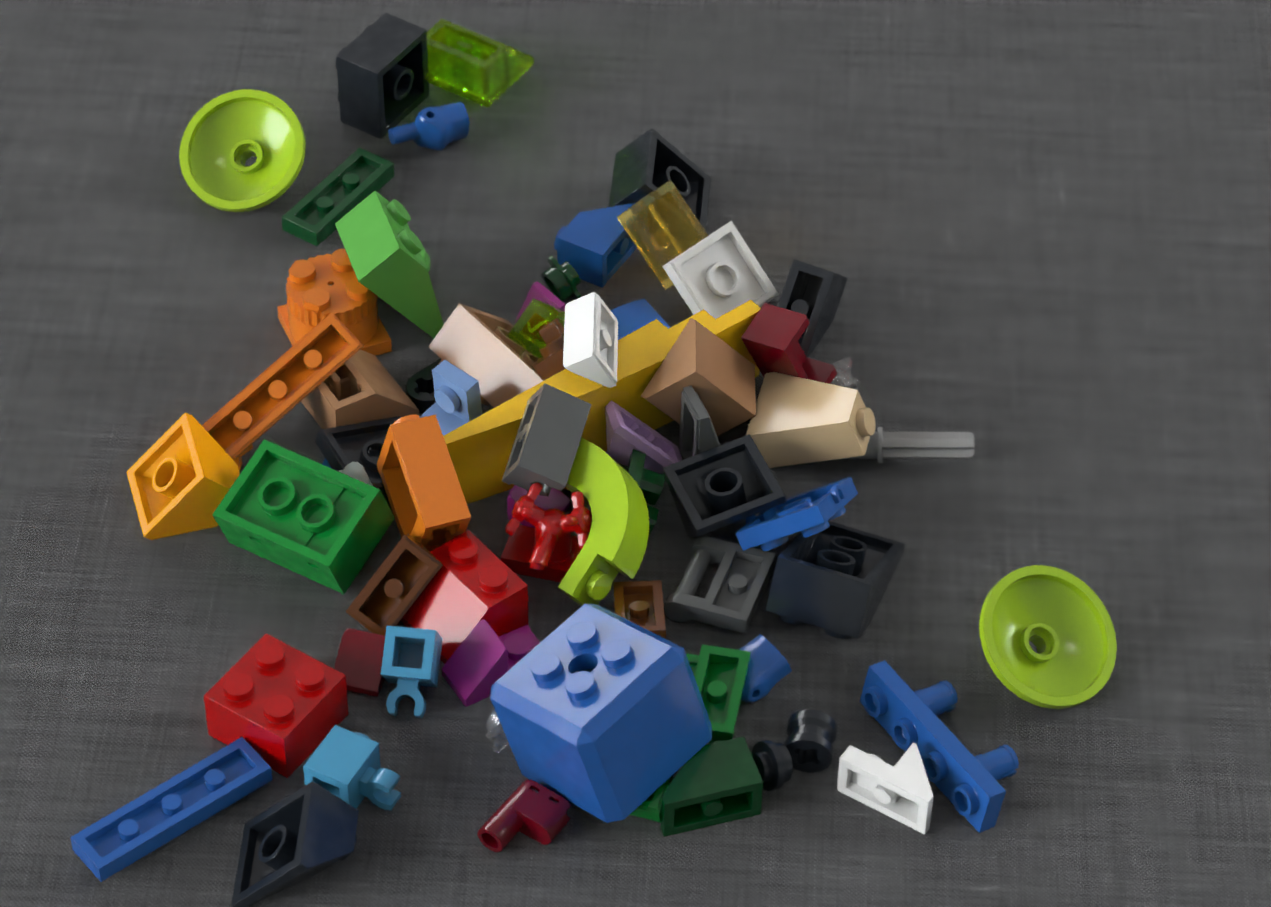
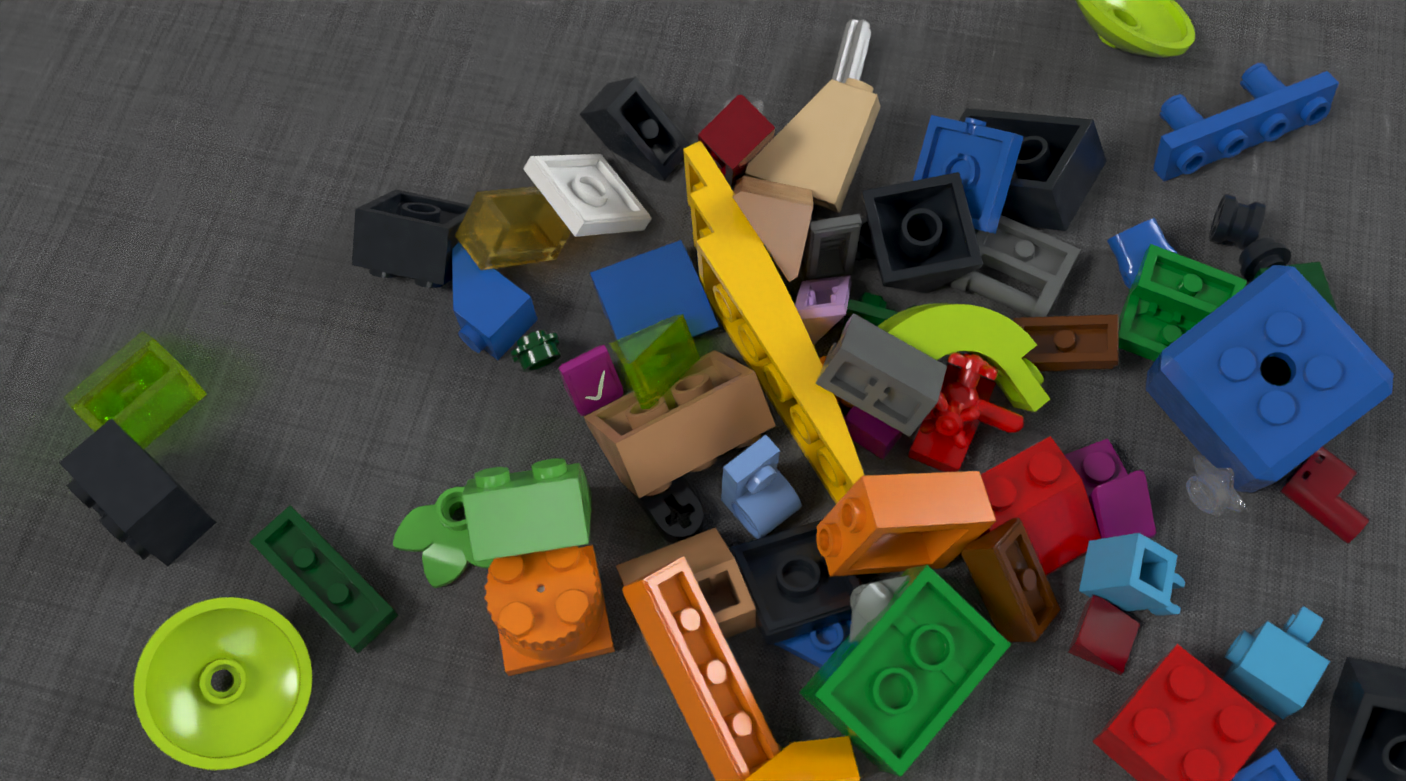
camera: 75 degrees left, 20 degrees up
(434, 127) = (237, 451): blue piece -> none
(552, 352) = (712, 349): reddish brown plate -> none
(591, 340) = (743, 303): white slope -> none
(893, 790) = (1292, 159): white slope -> none

